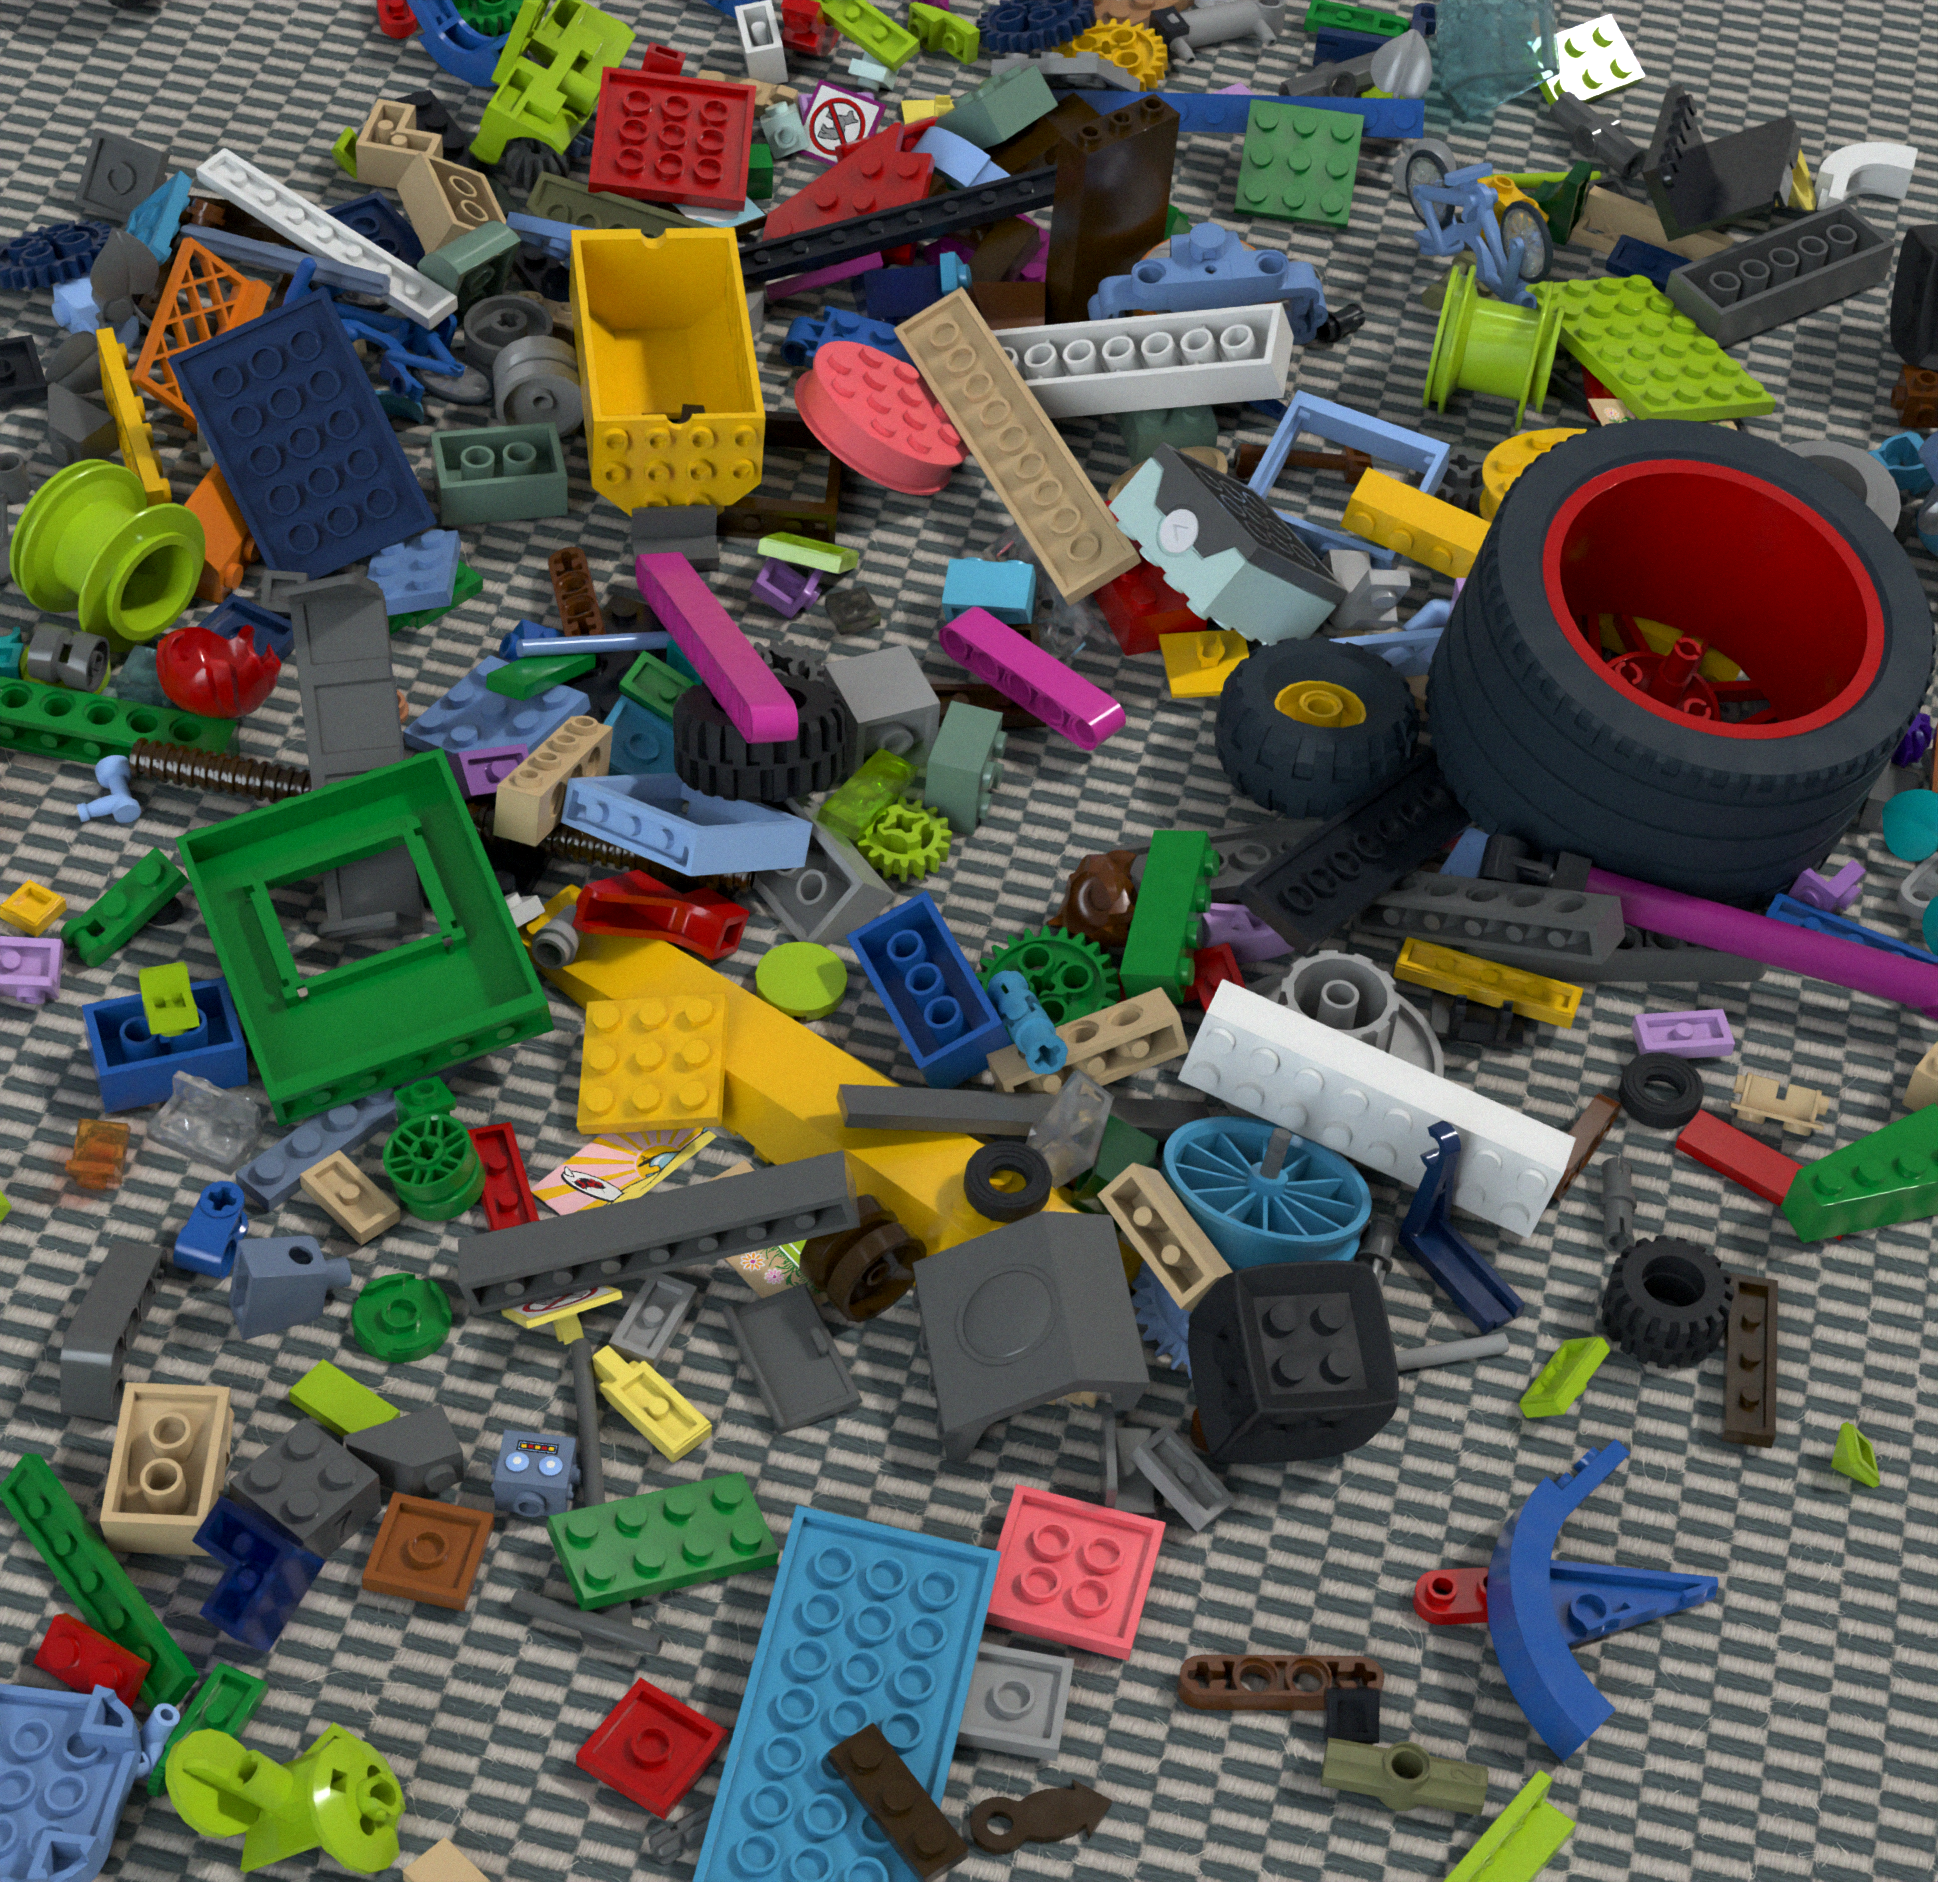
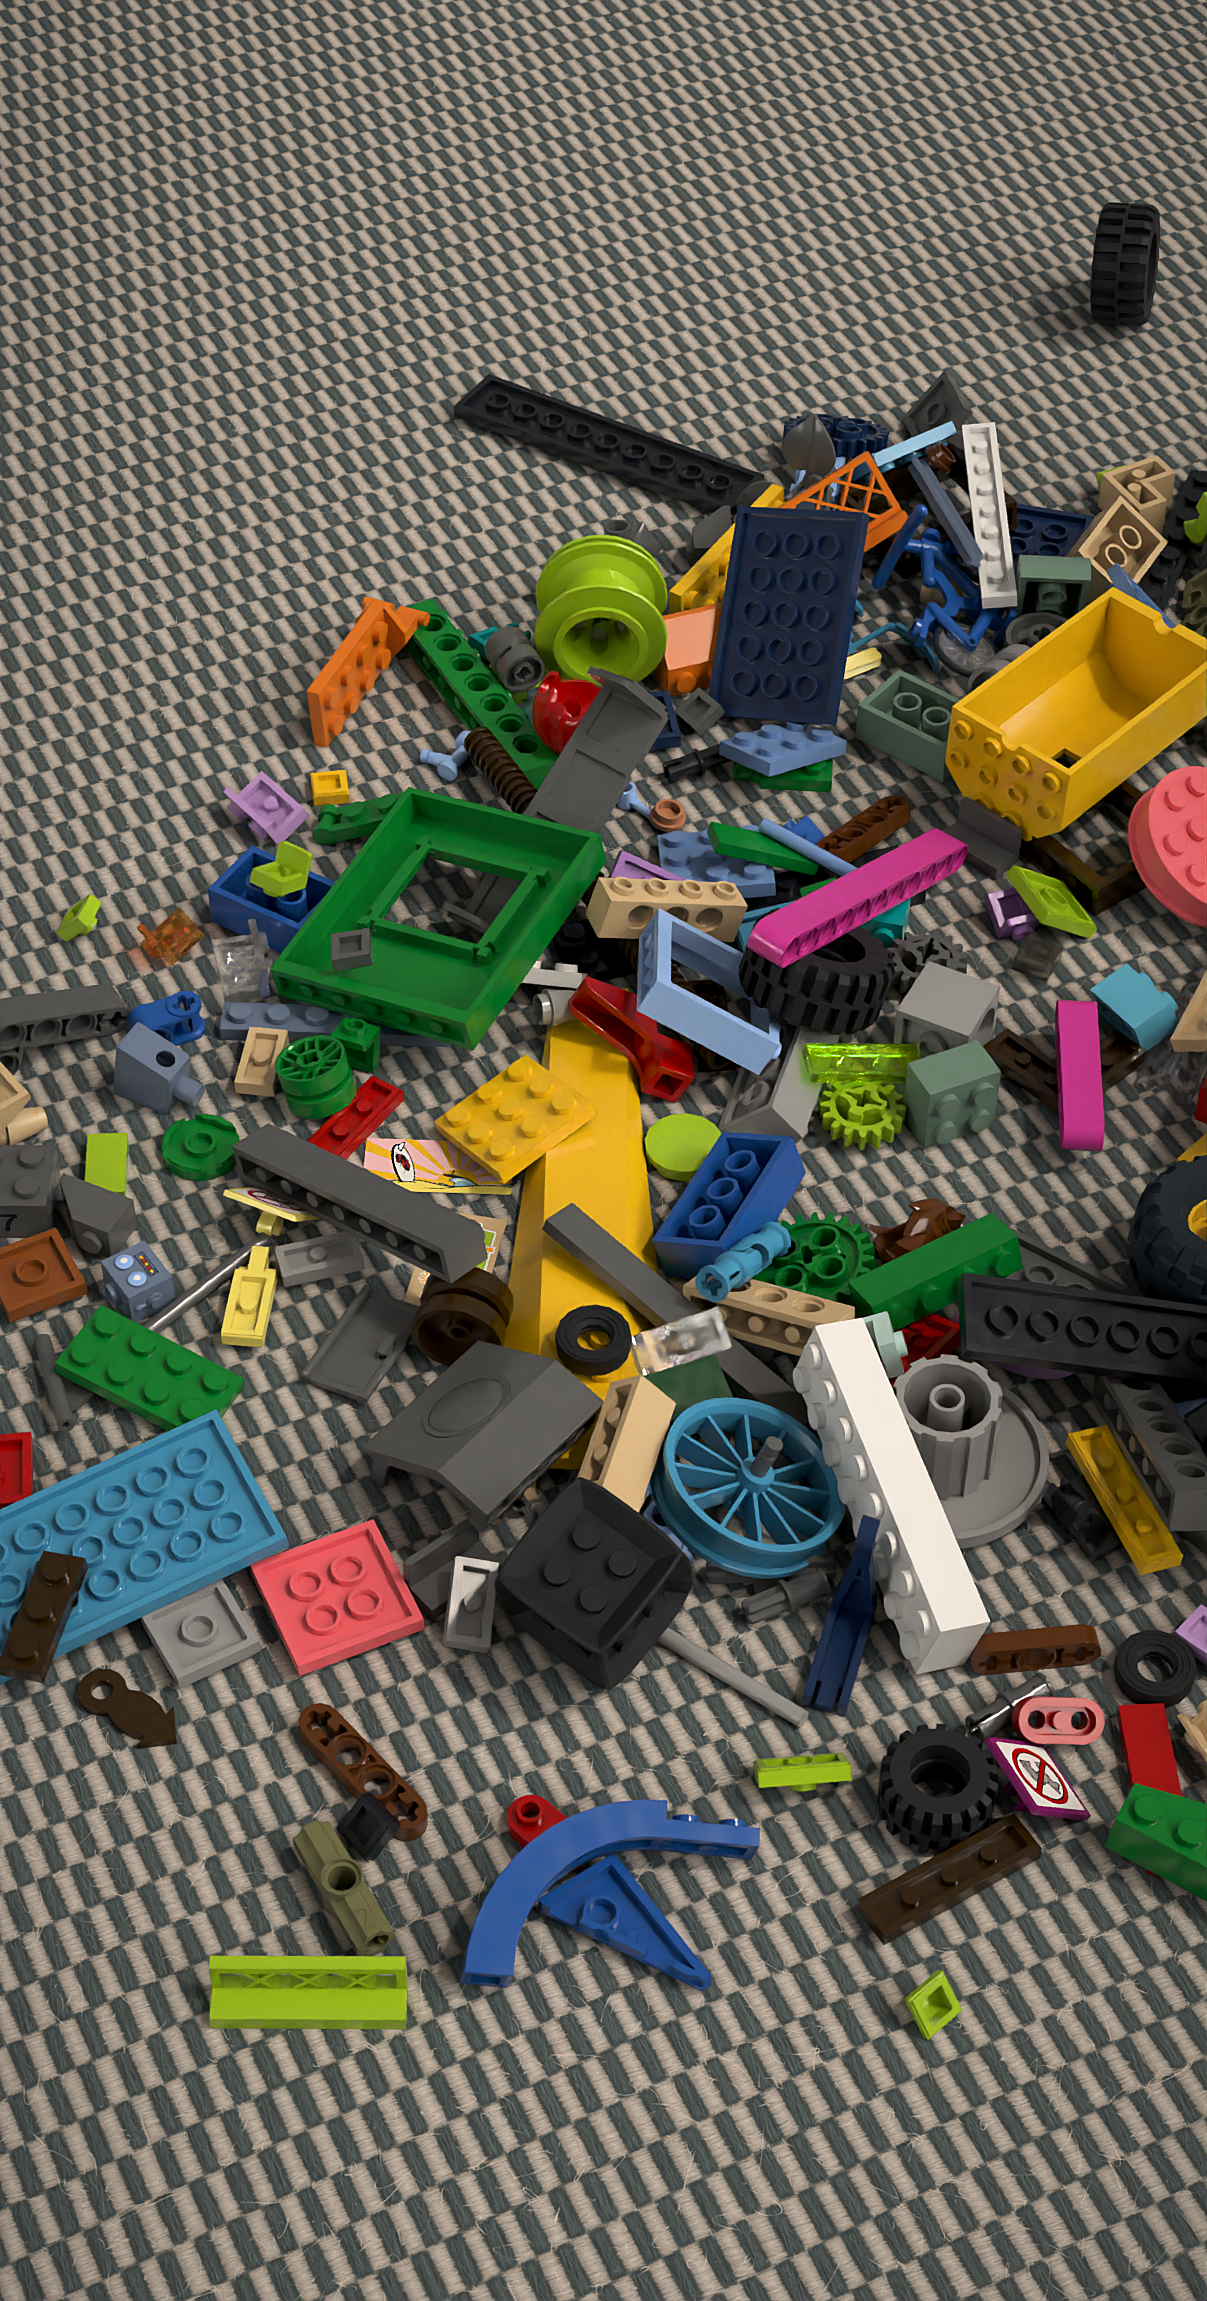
camera: 55 degrees right, 0 degrees up
(346, 1019) = (351, 949): none -> dark grey plate
(1195, 996) = (887, 1343): none -> light aqua bracket
(1665, 1181) = (1055, 1720): none -> plate
(1714, 1235) = (1036, 1779): none -> piece

